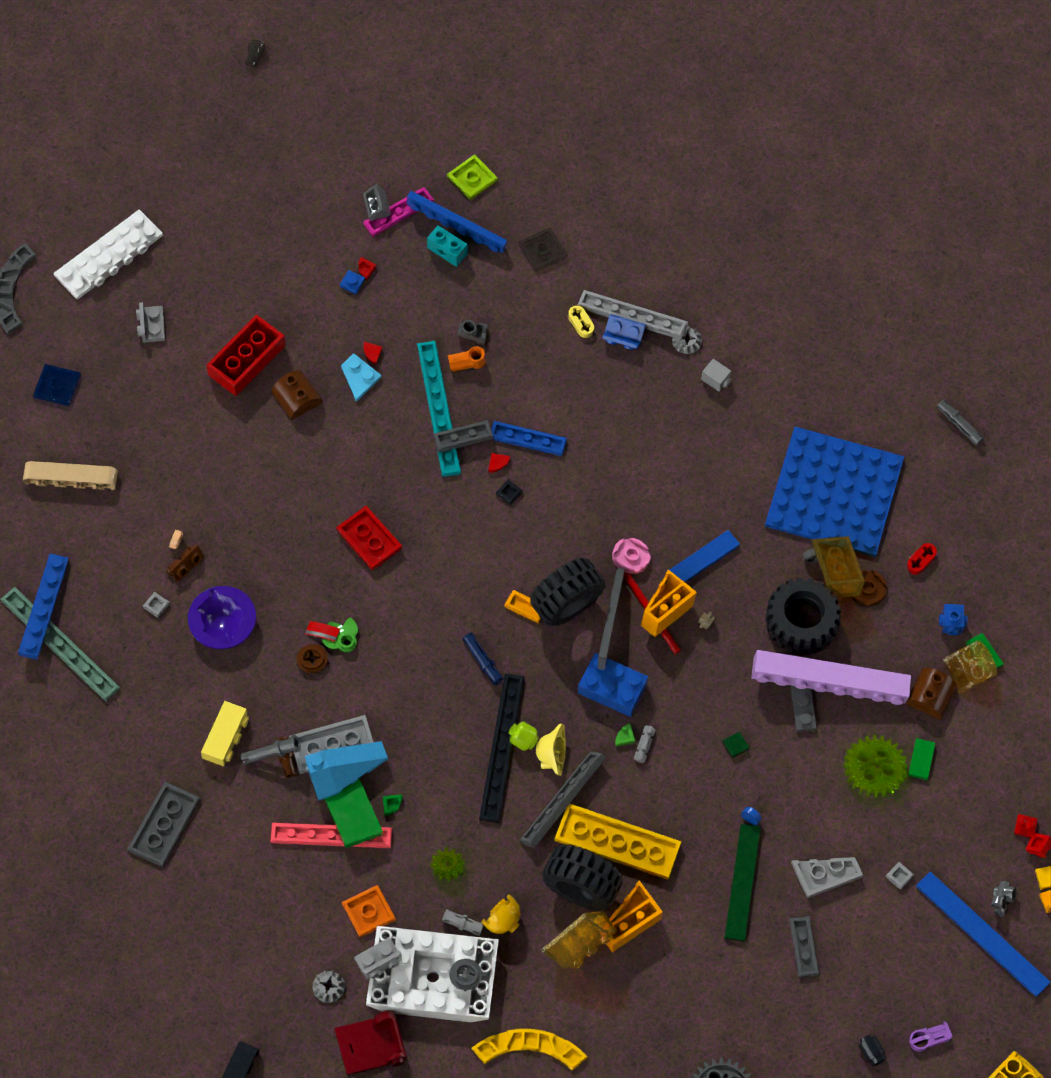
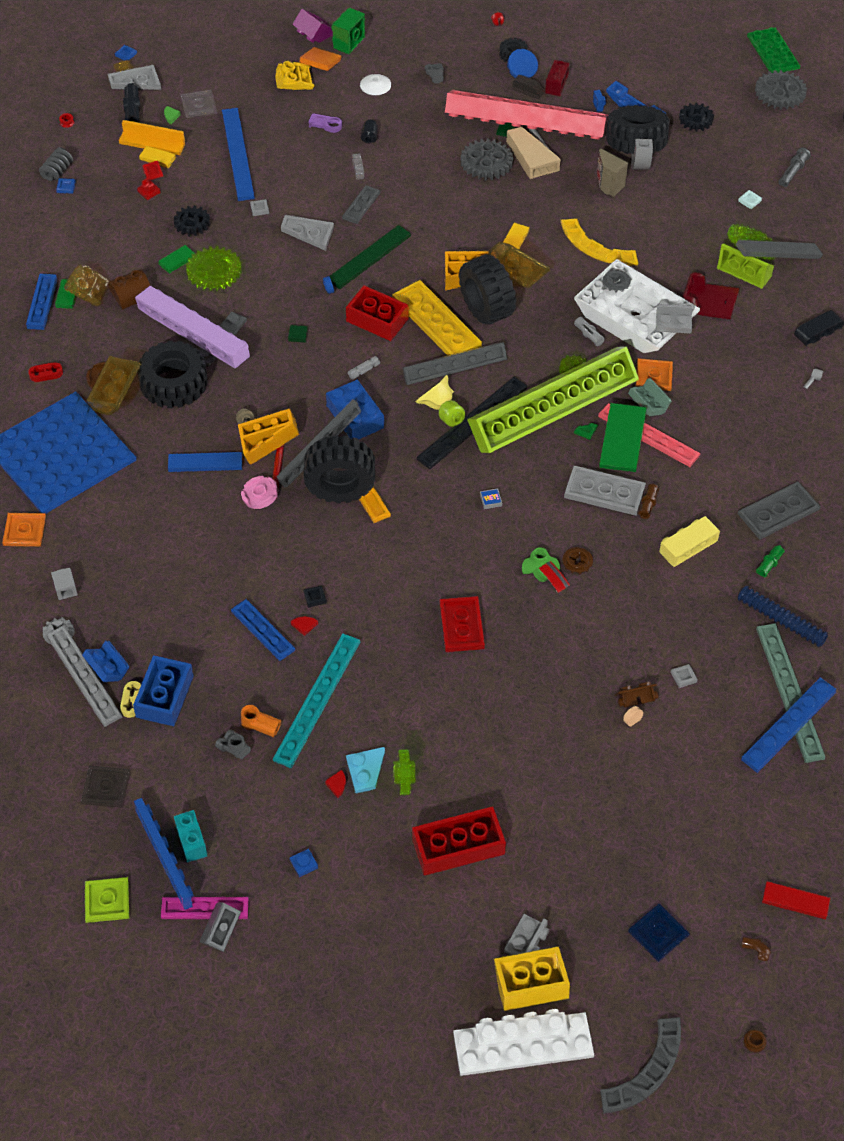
camera: 145 degrees left, 10 degrees down
(70, 475) = (699, 829): tan beam -> none
(102, 708) = (780, 615): none -> dark blue piece
(126, 289) = (532, 978): none -> yellow slope
(142, 761) = (770, 561): none -> green axle
(210, 1009) = (816, 374): none -> light grey hand
(221, 617) = (635, 623): dark purple piece -> none
(279, 748) = (653, 498): dark grey pin -> none
(296, 394) = (435, 781): reddish brown brick -> none
(322, 377) = (404, 772): none -> clear neon green gear
(333, 993) = (716, 352): light grey gear -> none
(339, 767) = (613, 462): dark azure wedge -> none
(353, 871) = (650, 396): none -> sand green bracket
(366, 268) = (280, 869): red tile -> none
(429, 675) = (490, 498): none -> tile
(437, 803) = (553, 399): none -> lime brick
(463, 436) = (317, 656): dark grey tile -> none
(487, 665) = (439, 479): dark blue pin -> none
(504, 916) = (559, 312): yellow cylinder -> none
(558, 334) = (163, 690): none -> blue brick
(617, 1002) = (516, 235): none -> yellow tile
(625, 736) = (373, 380): bright green tile -> none
(676, 805) = (377, 313): none -> red brick
(795, 405) = (24, 529): none -> orange tile
(810, 556) = (123, 414): dark grey tile -> none
(845, 992) = (358, 166): none -> clear beam
(952, 619) = (67, 318): blue brick -> none
(955, 812) = (191, 220): none -> black gear
(997, 628) = (41, 301): none -> blue plate
(1002, 895) = (203, 161): dark grey plate -> none

